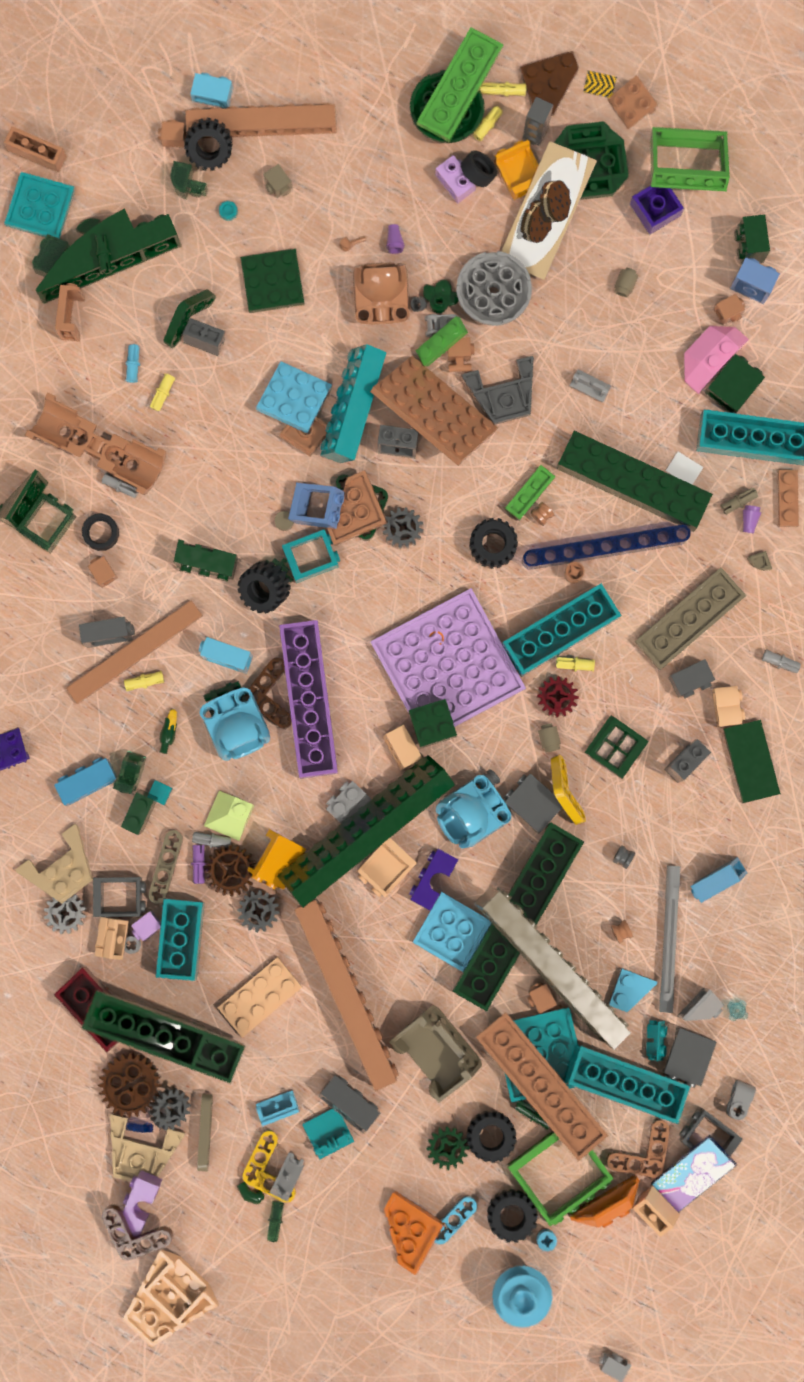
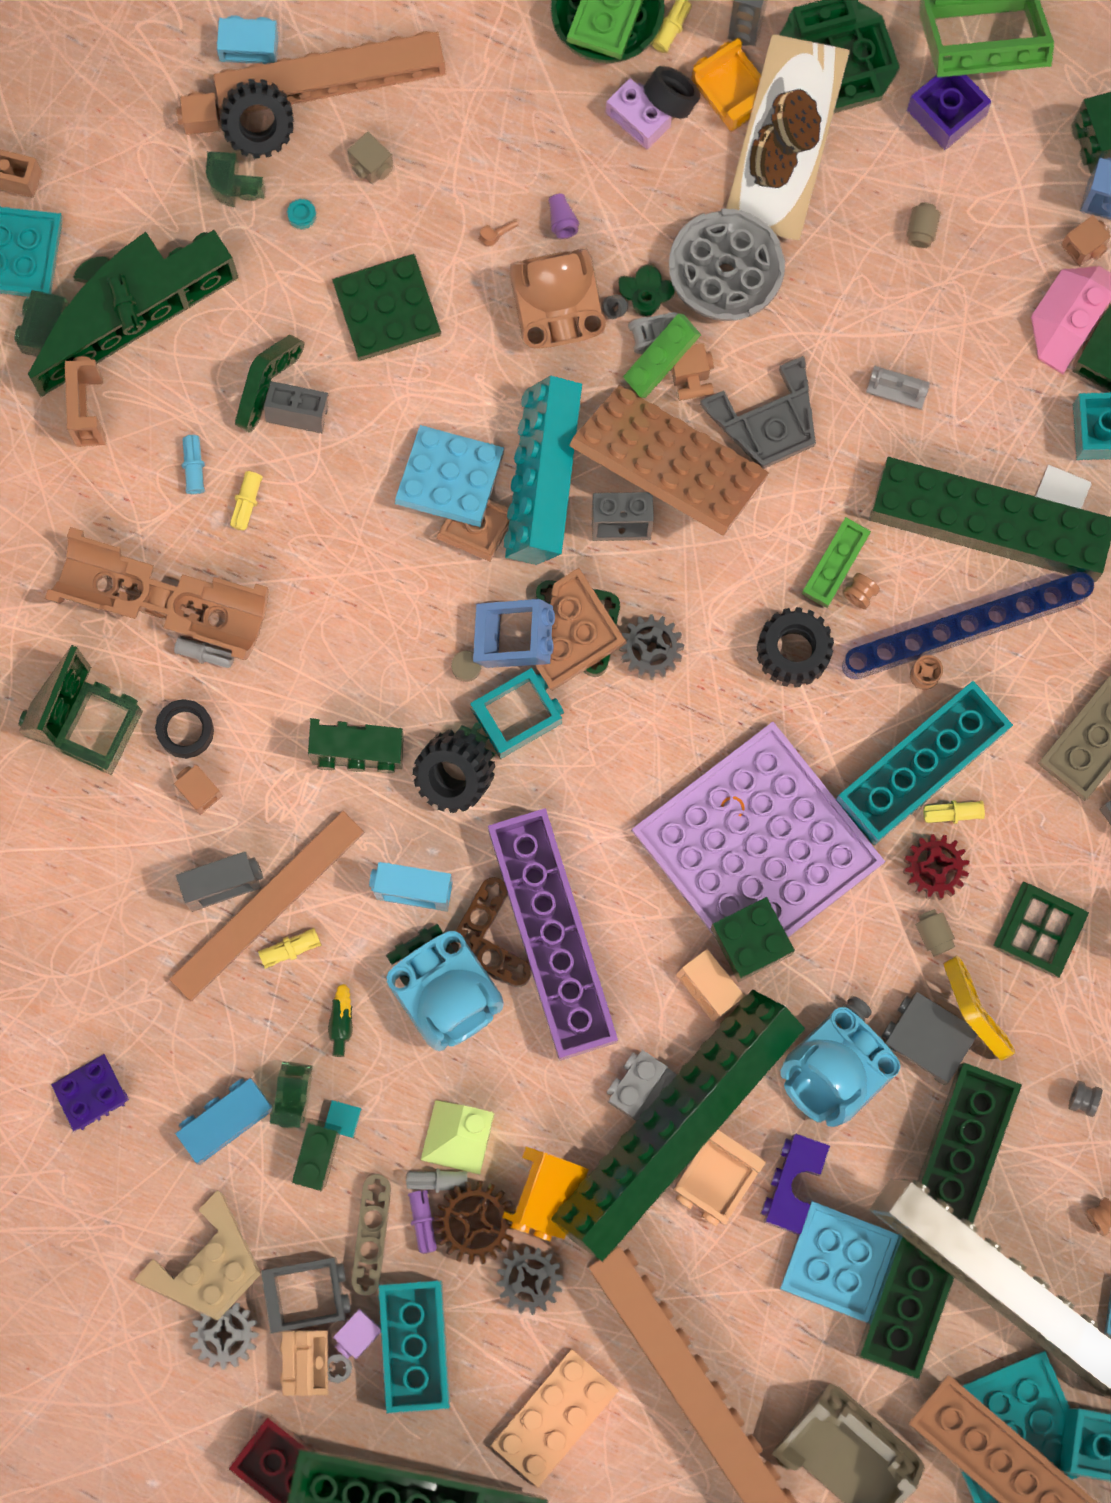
camera: 10 degrees left, 5 degrees down
(541, 997) = (997, 1342): nougat brick -> none

